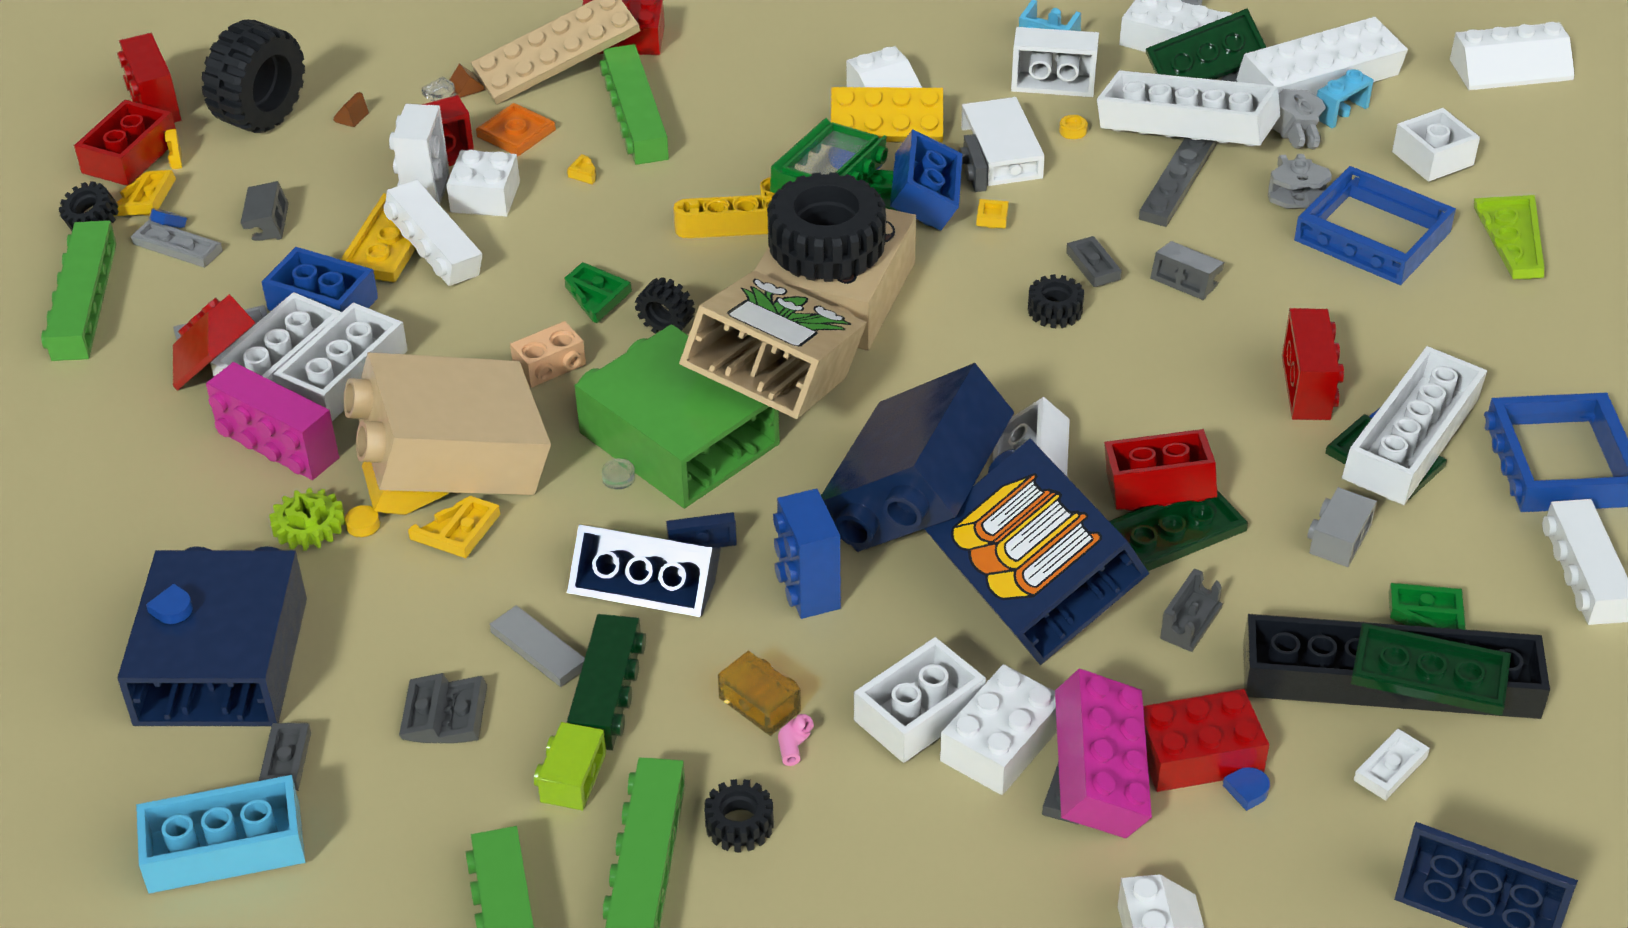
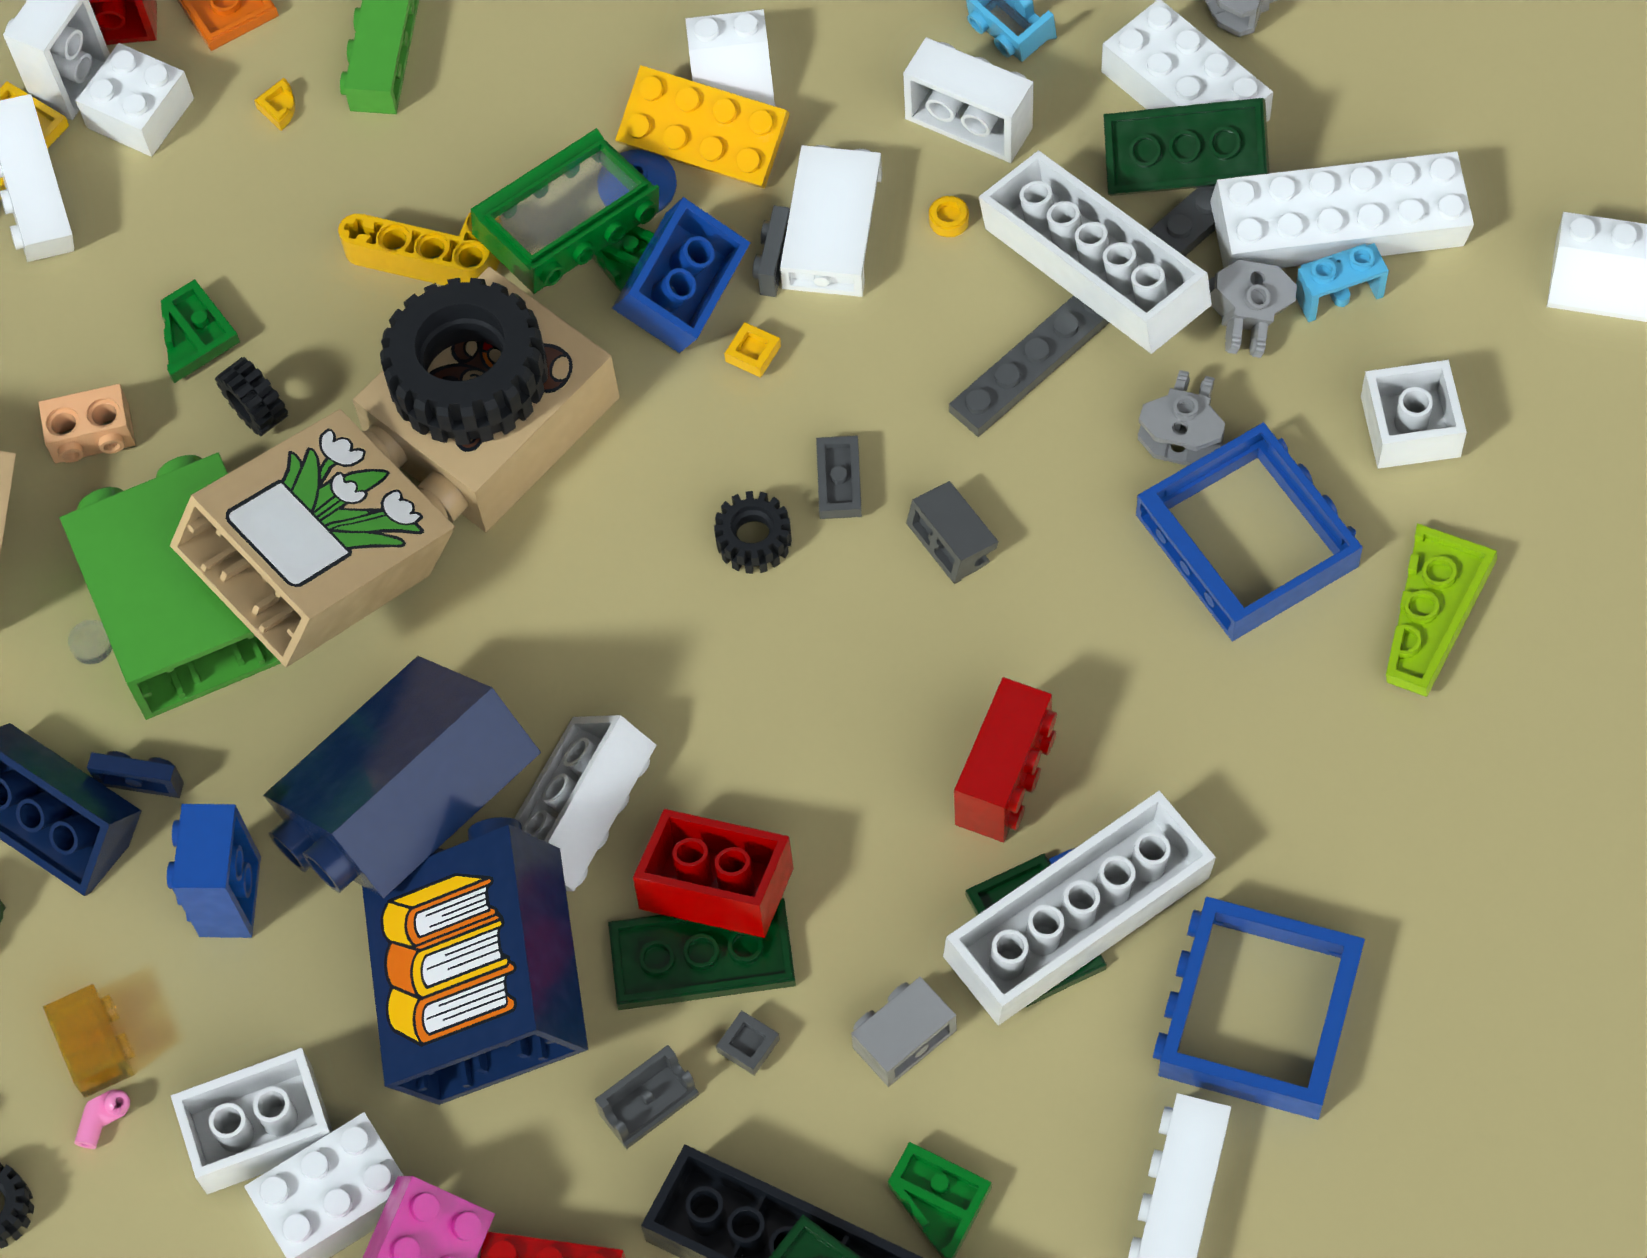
camera: 25 degrees right, 20 degrees up
(1240, 563) = (748, 1042): none -> dark grey plate

